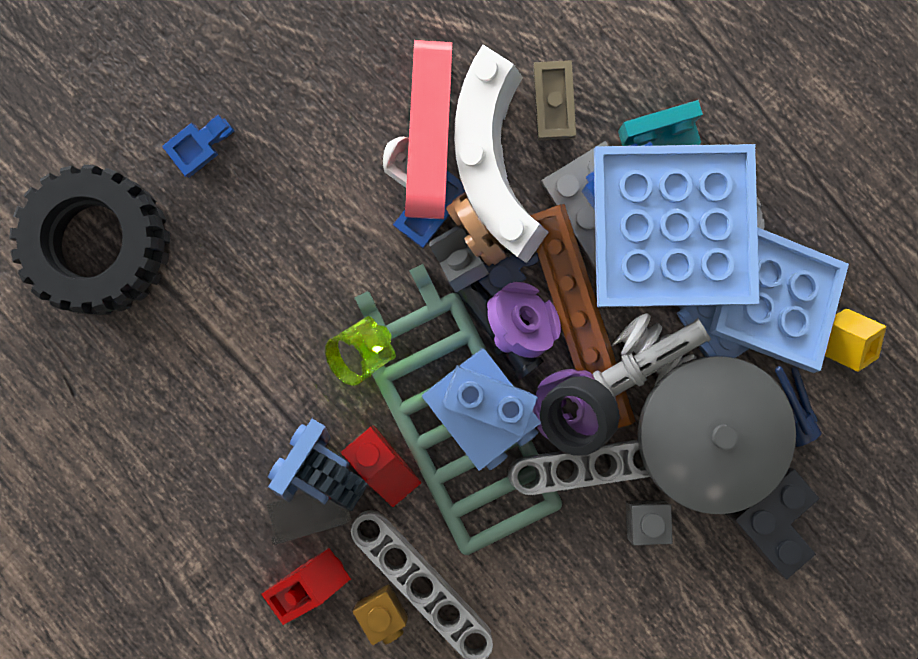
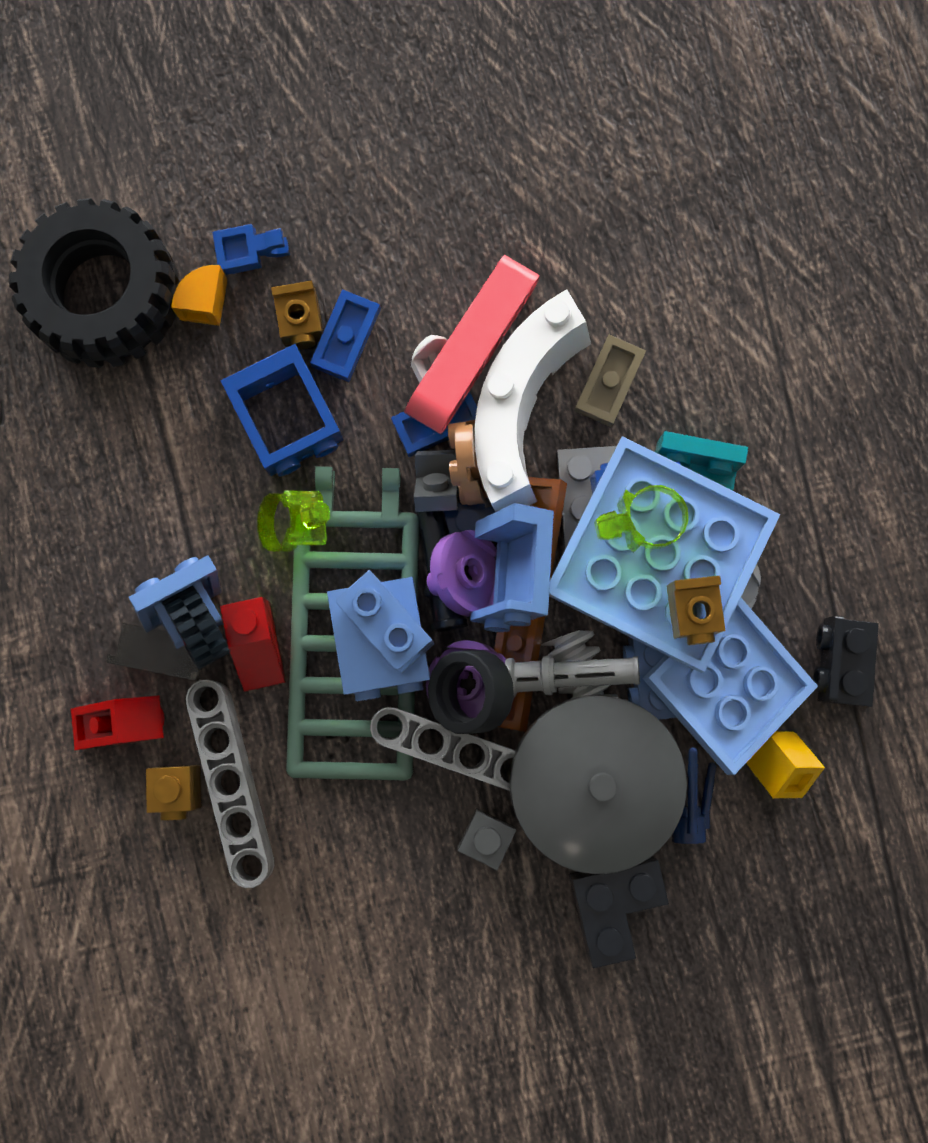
camera: 30 degrees right, 5 degrees down
(182, 204) = (201, 295): none -> light orange brick
(263, 165) = (297, 299): none -> pearl gold brick
(271, 243) = (265, 375): none -> blue window
(318, 175) = (345, 335): none -> blue plate
(567, 296) = (521, 566): none -> medium blue panel
(628, 225) = (612, 525): none -> clear neon green piece
(715, 258) = (682, 597): none -> pearl gold brick
(859, 231) = (846, 662): none -> black bracket

